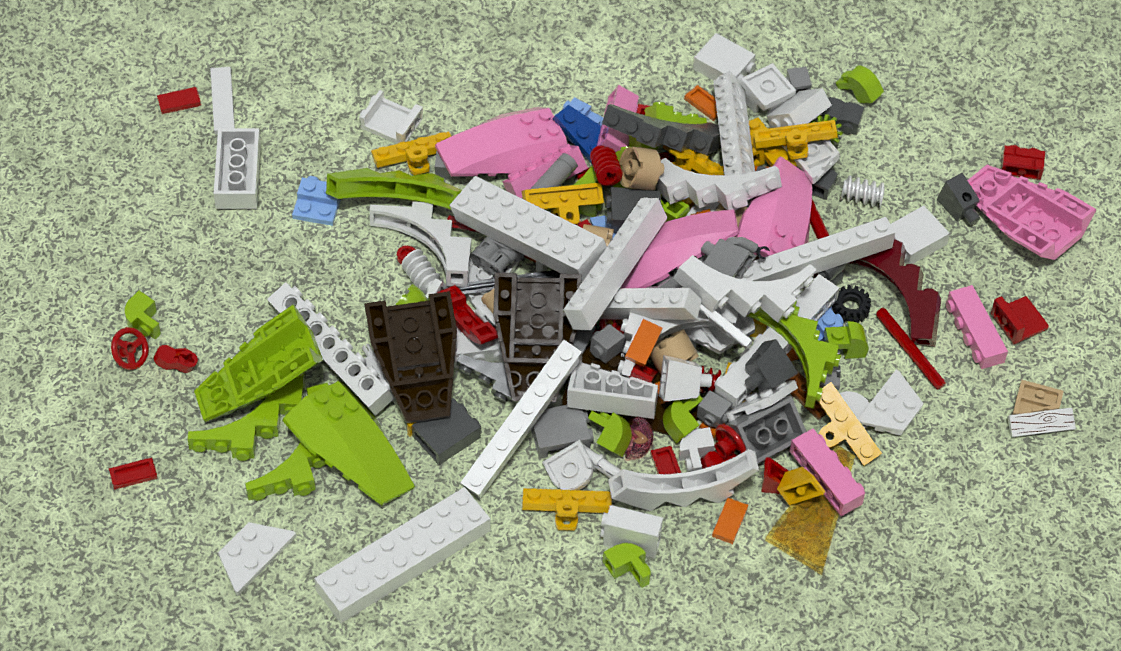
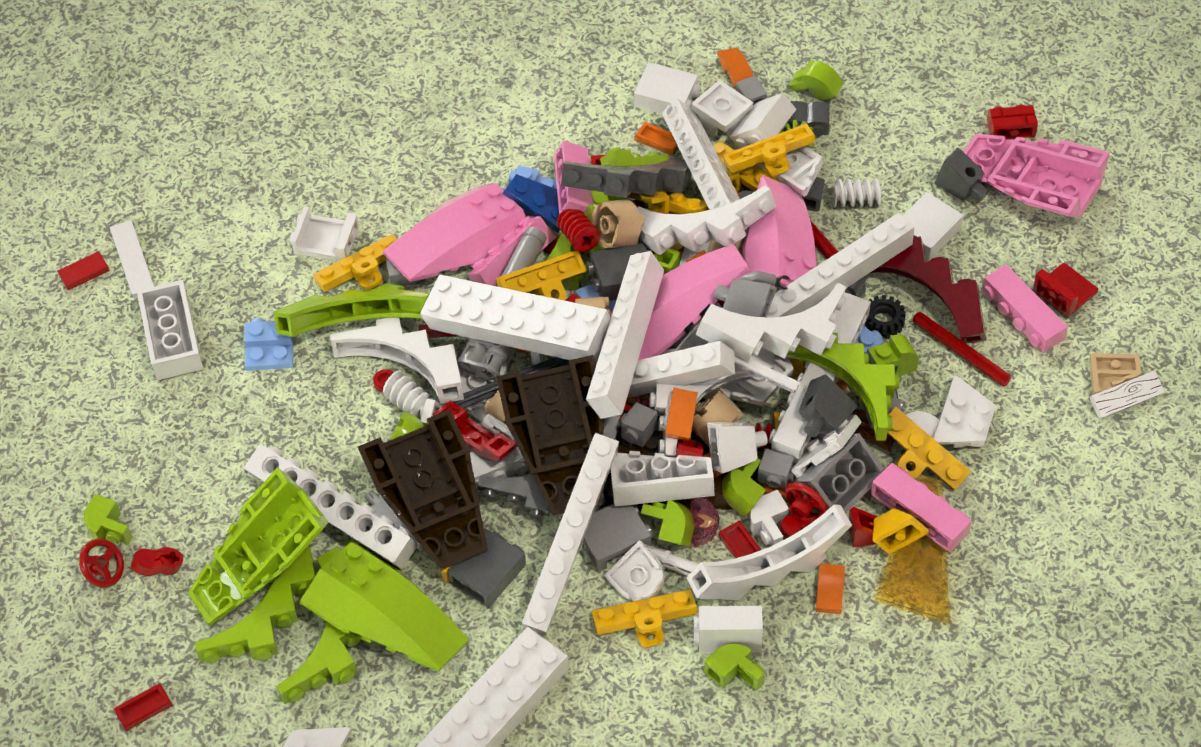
camera: 10 degrees left, 0 degrees up
(792, 52) = (735, 64): none -> orange slope

